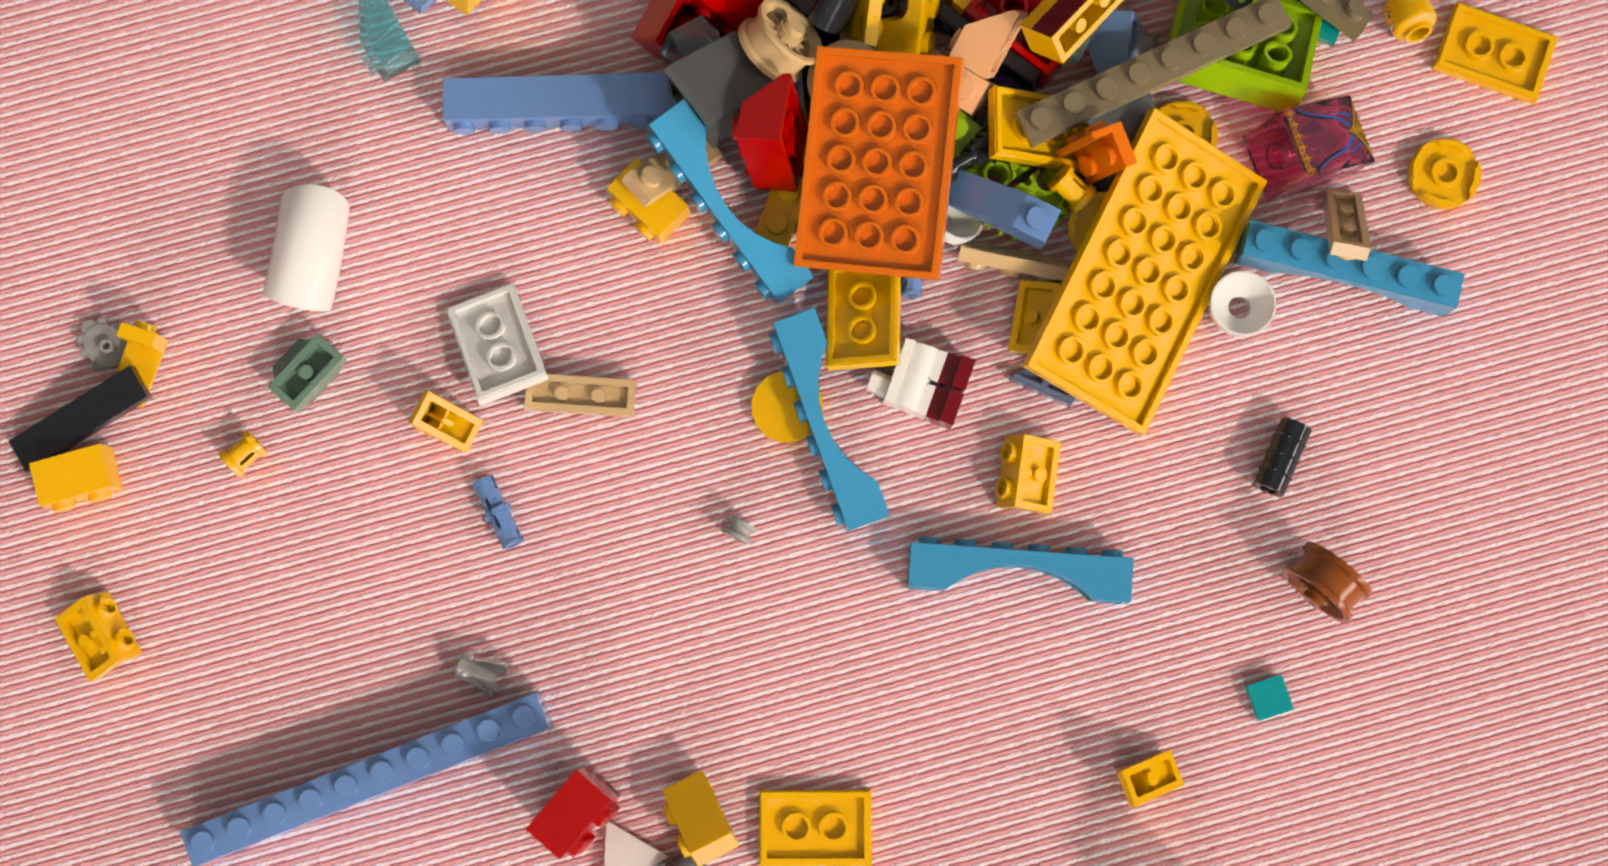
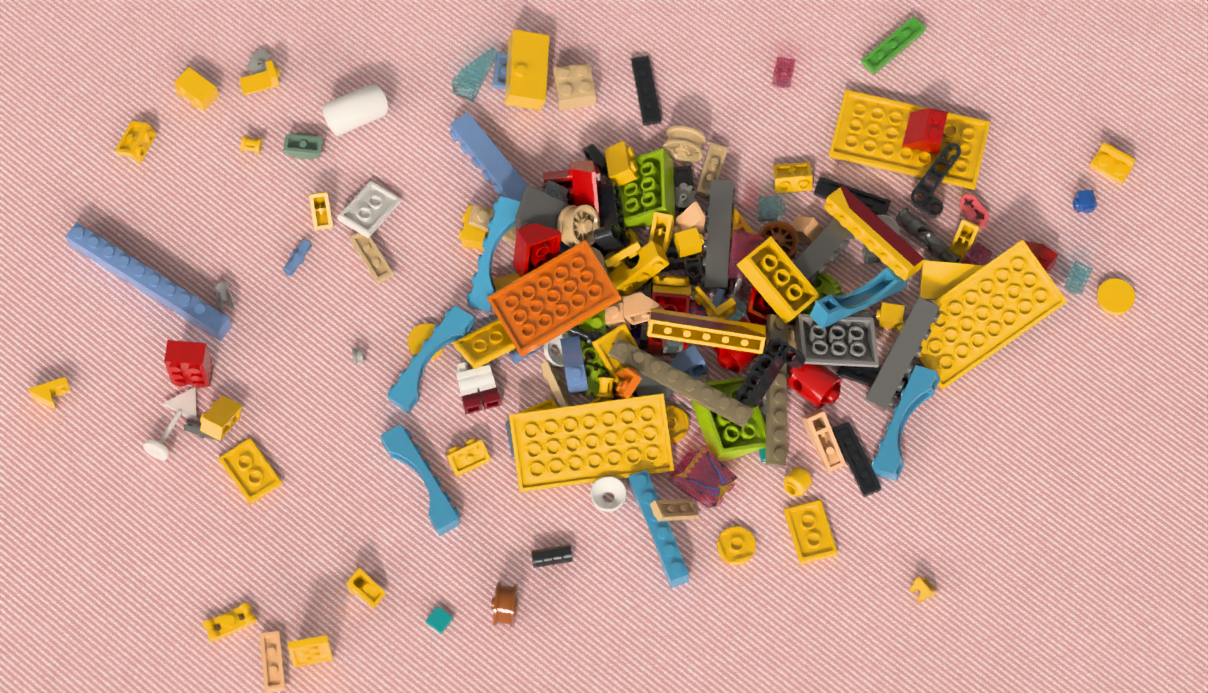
camera: 55 degrees right, 15 degrees down
(81, 417) = (223, 74): black tile -> none

